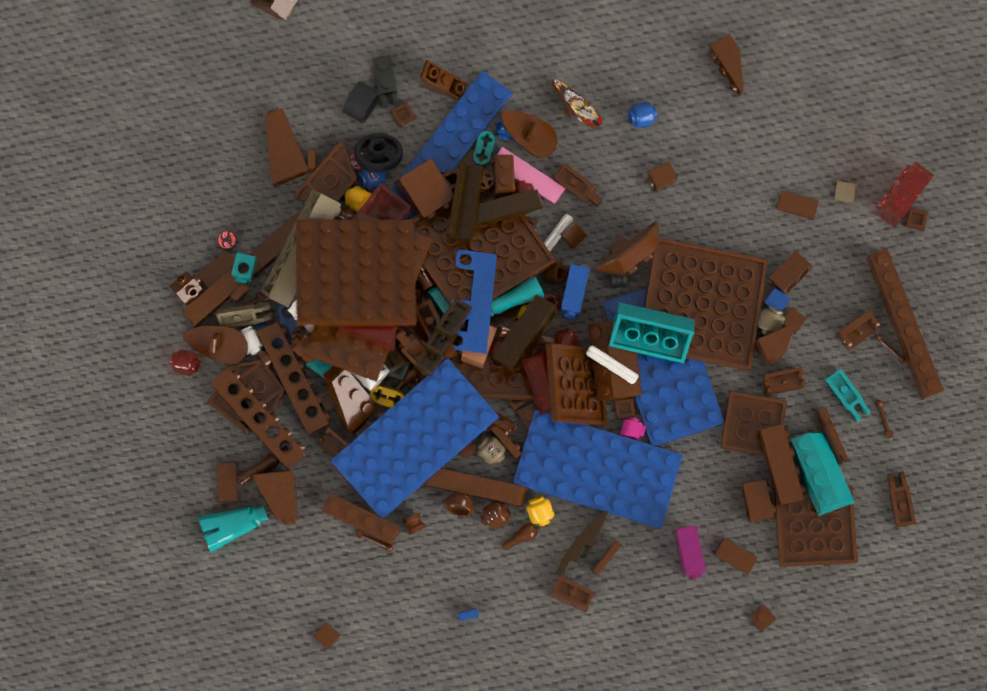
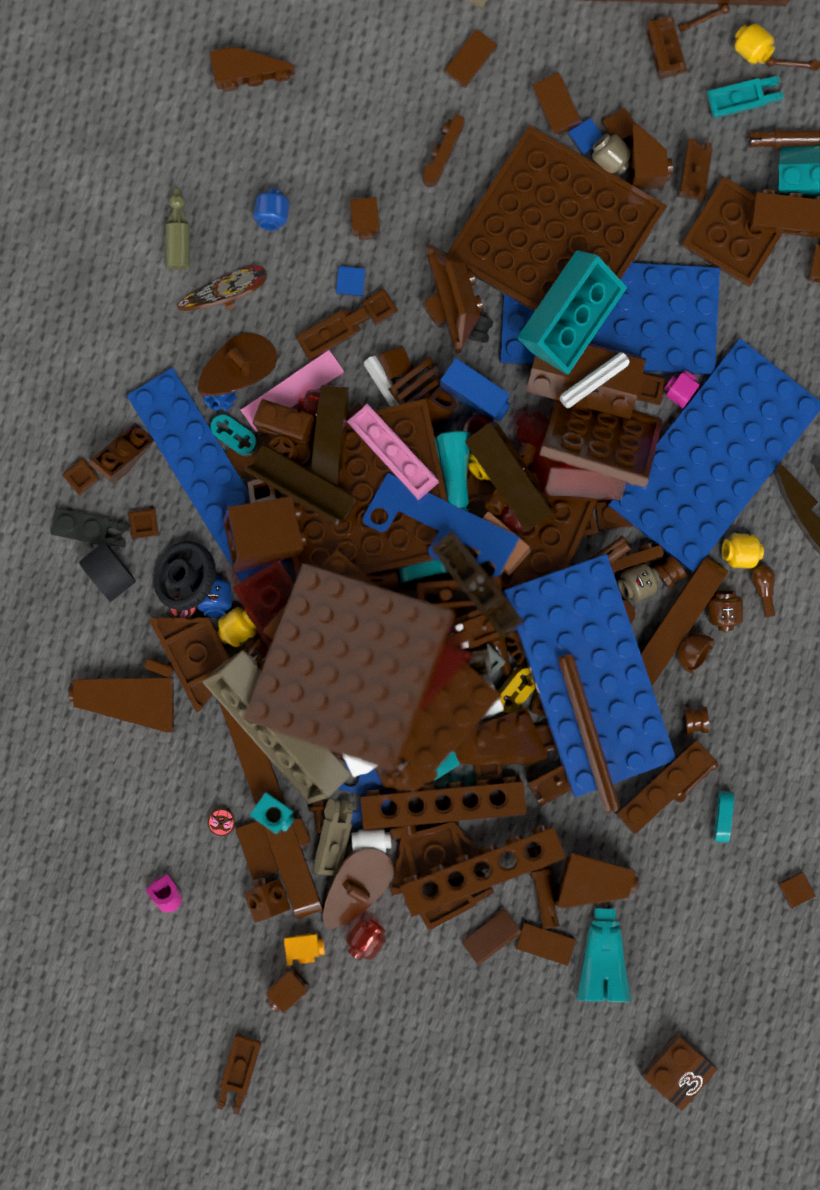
camera: 65 degrees left, 5 degrees up
(68, 314) = (239, 1070): none -> reddish brown hinge
(132, 323) = (286, 991): none -> reddish brown brick
(164, 324) = (303, 948): none -> light orange brick
(165, 221) = (165, 894): none -> dark pink plate
(174, 603) = (678, 1072): none -> reddish brown slope
(218, 444) = (491, 937): none -> reddish brown tile
(357, 567) = (724, 816): none -> teal beam
(375, 451) = (589, 733): none -> reddish brown axle
(416, 62) = (81, 477): none -> reddish brown tile
(506, 468) = (670, 571): none -> reddish brown wheel
(511, 252) = (392, 451): none -> bright pink tile
(551, 245) = (433, 370): none -> reddish brown tile
(601, 61) = (177, 235): none -> olive wheel
(607, 210) = (379, 306): none -> reddish brown tile
(616, 185) = (350, 281): none -> blue tile
(726, 211) = (443, 152): none -> reddish brown hinge
(885, 387) = (754, 43): none -> yellow head

